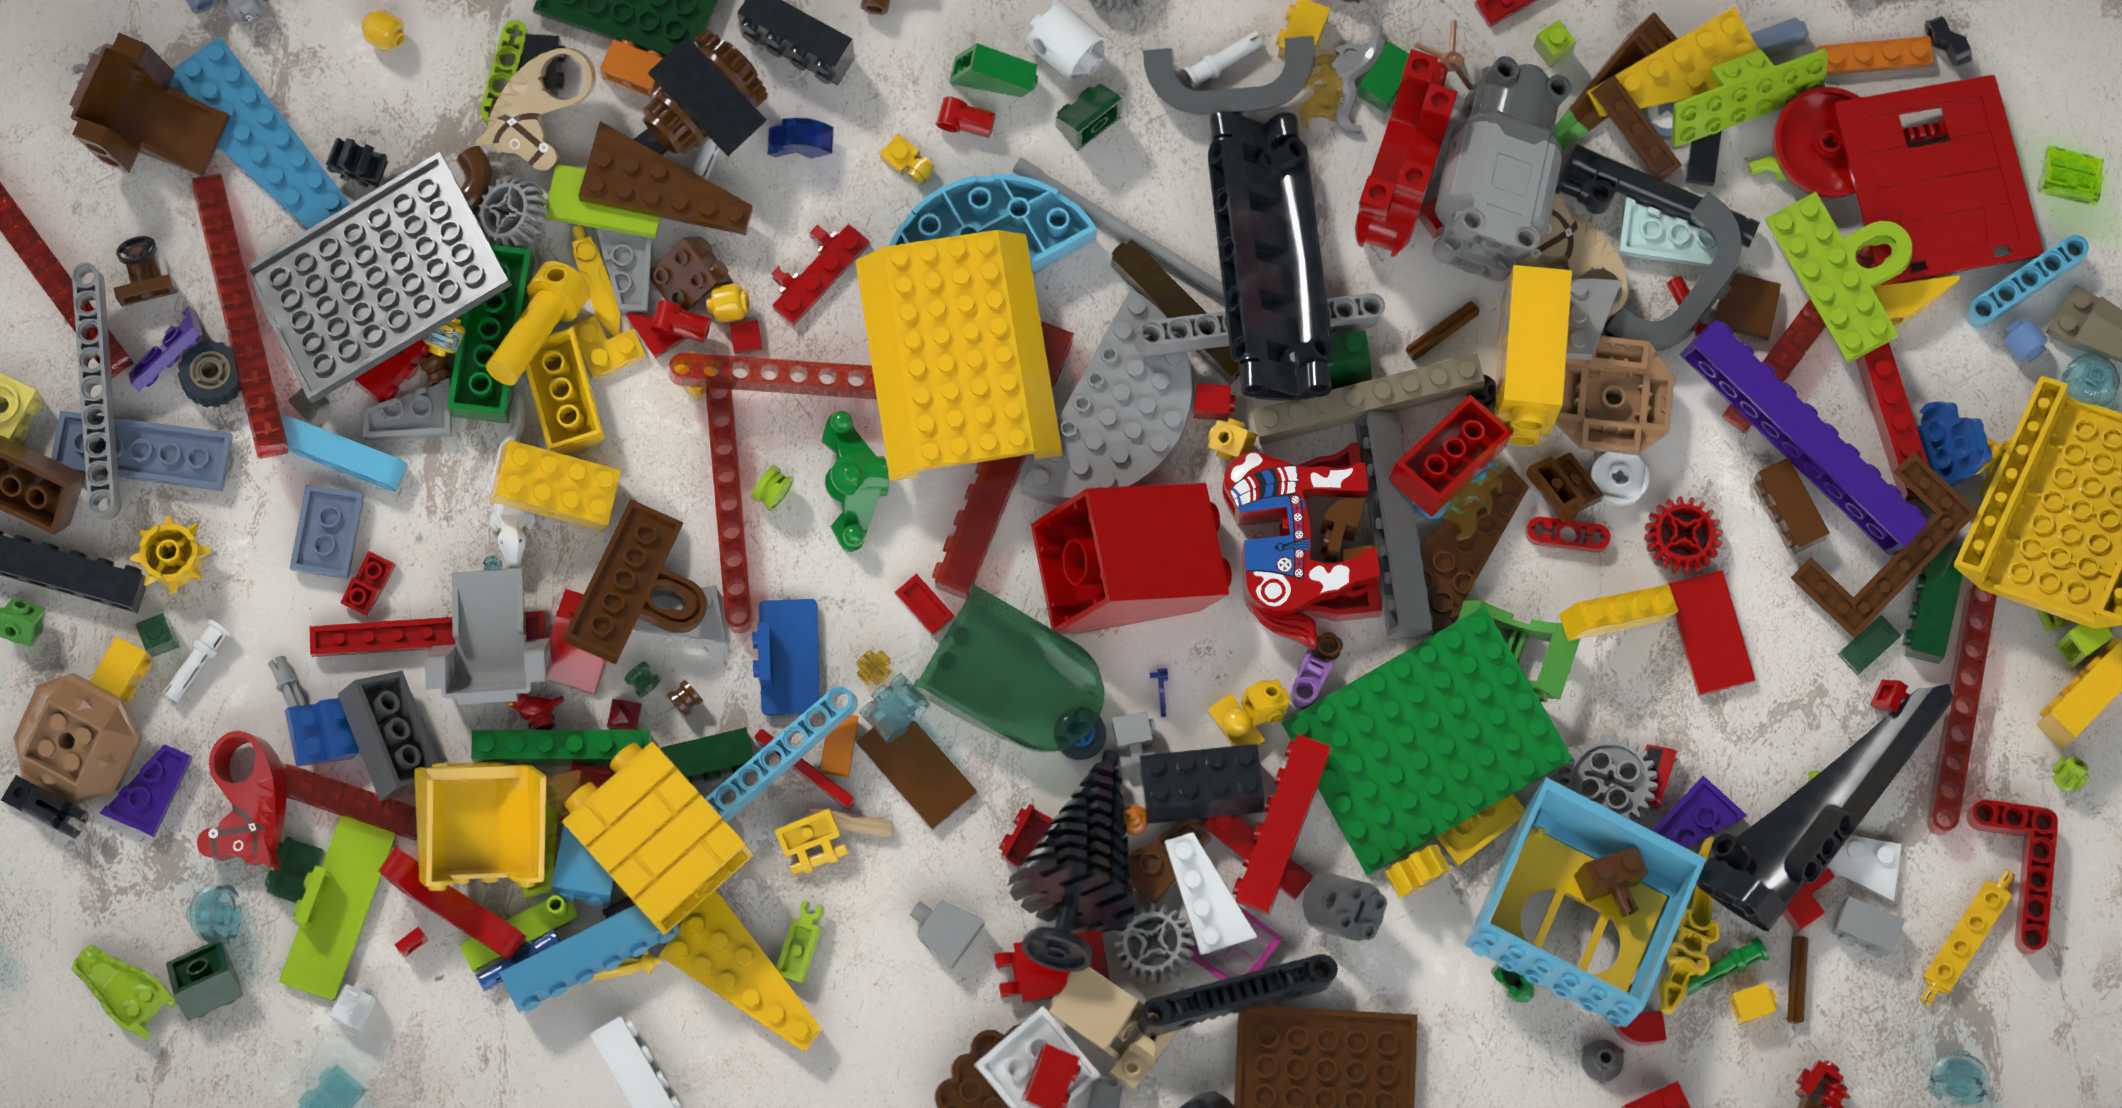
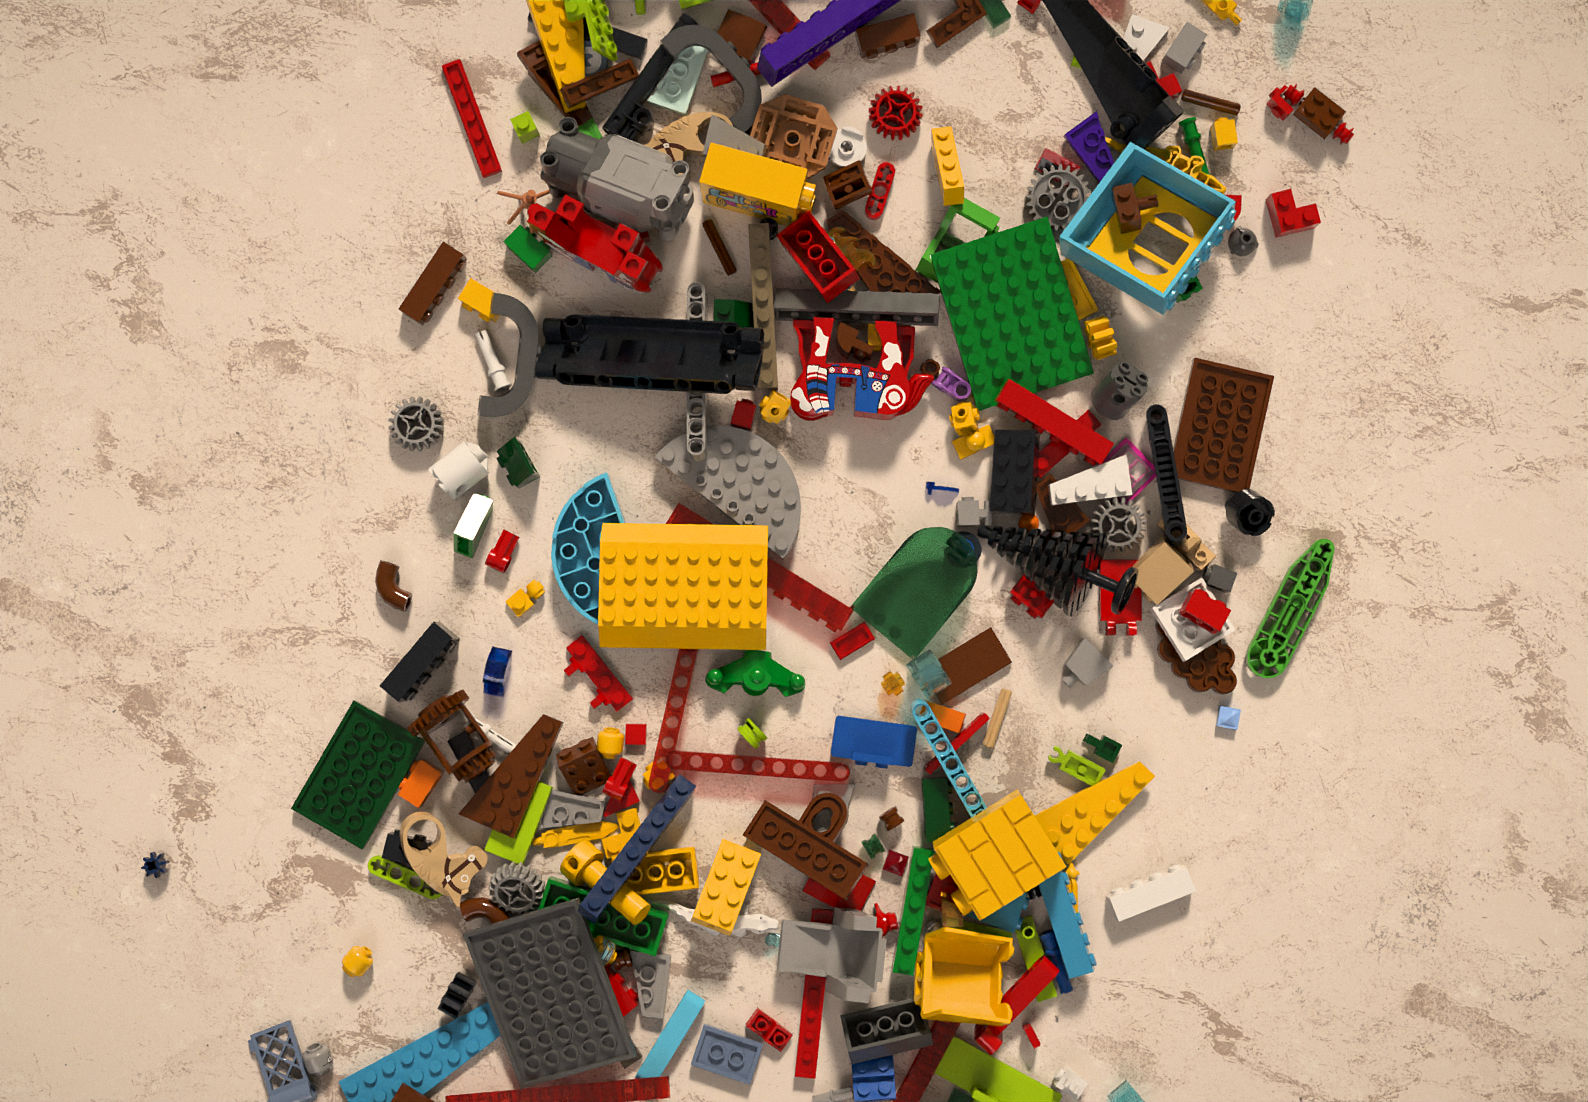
camera: 80 degrees left, 10 degrees up
(589, 353) = (636, 849): none -> dark blue brick
(707, 96) = (460, 733): black tile -> none
(807, 833) = (1002, 747): yellow plate -> none
(833, 980) = (1105, 747): none -> dark green plate
(1027, 169) = (556, 507): light grey piece -> none
(1130, 556) = (850, 491): red slope -> none
(1160, 289) = (664, 431): dark brown brick -> none
(1336, 81) = (524, 286): piece -> none
(1711, 633) = (965, 109): red tile -> none

